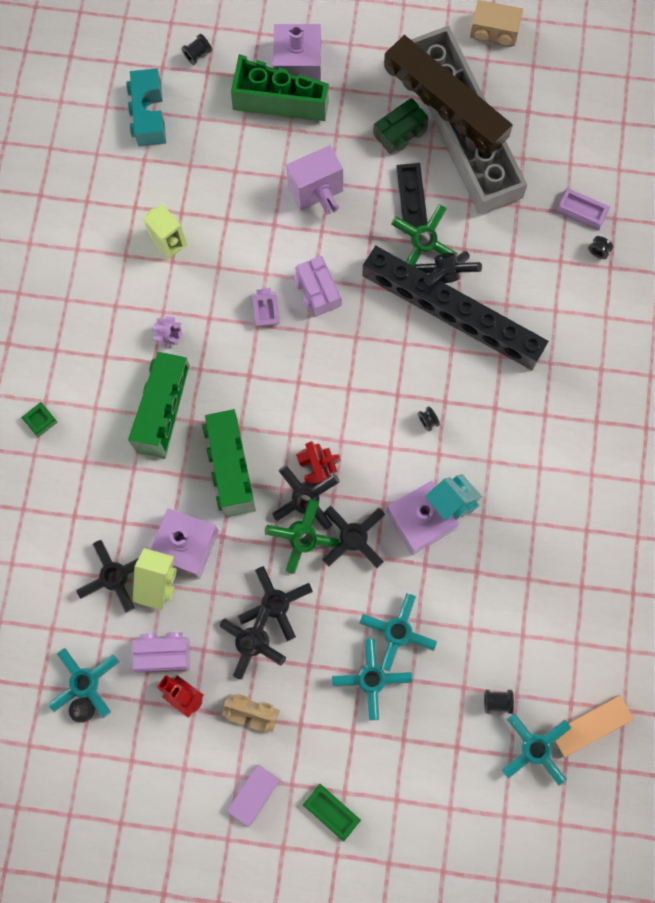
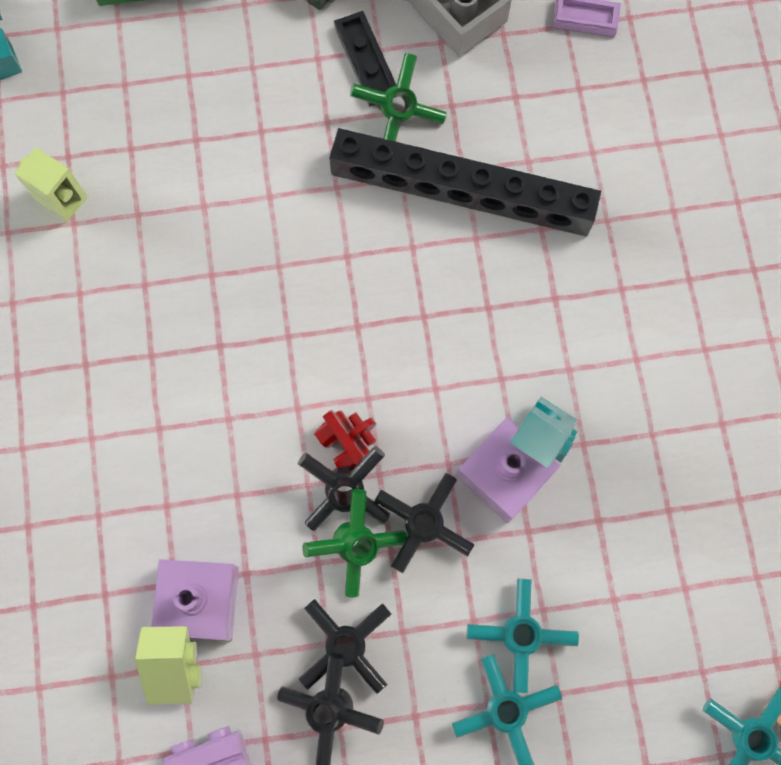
camera: 20 degrees left, 0 degrees up
(102, 581) = (97, 684): black bar -> none
(159, 405) = (108, 420): green wedge -> none
(167, 331) = (91, 317): lavender gear -> none
(229, 463) = (226, 471): green wedge -> none
(265, 307) = (216, 249): lavender bracket -> none
(316, 179) = (234, 63): lavender brick -> none
(318, 286) = (277, 203): lavender brick -> none
(428, 418) = (475, 336): black bush -> none
(448, 267) = (442, 131): black bar -> none
(498, 701) = (684, 689): black bush -> none
(600, 247) = (625, 56): black bush -> none

